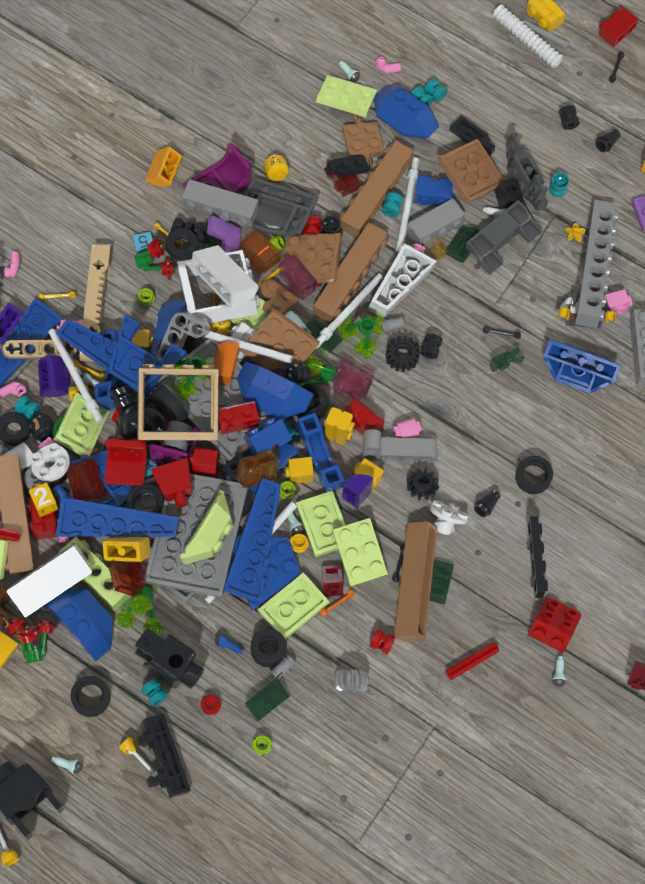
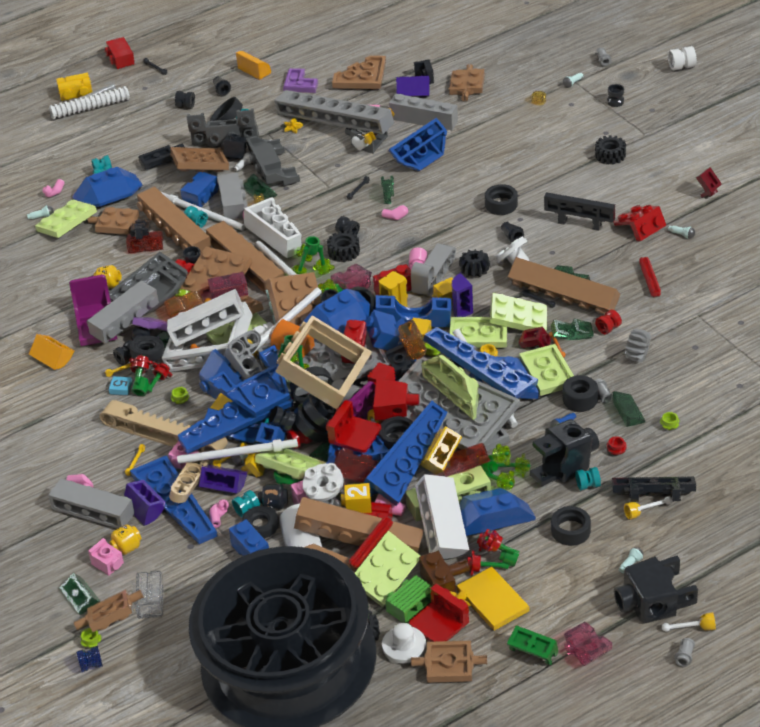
camera: 60 degrees left, 25 degrees down
(361, 610) = (575, 331): none -> clear green slope
(473, 383) = (395, 214): none -> bright pink arm
(555, 158) = (227, 110): none -> black tyre

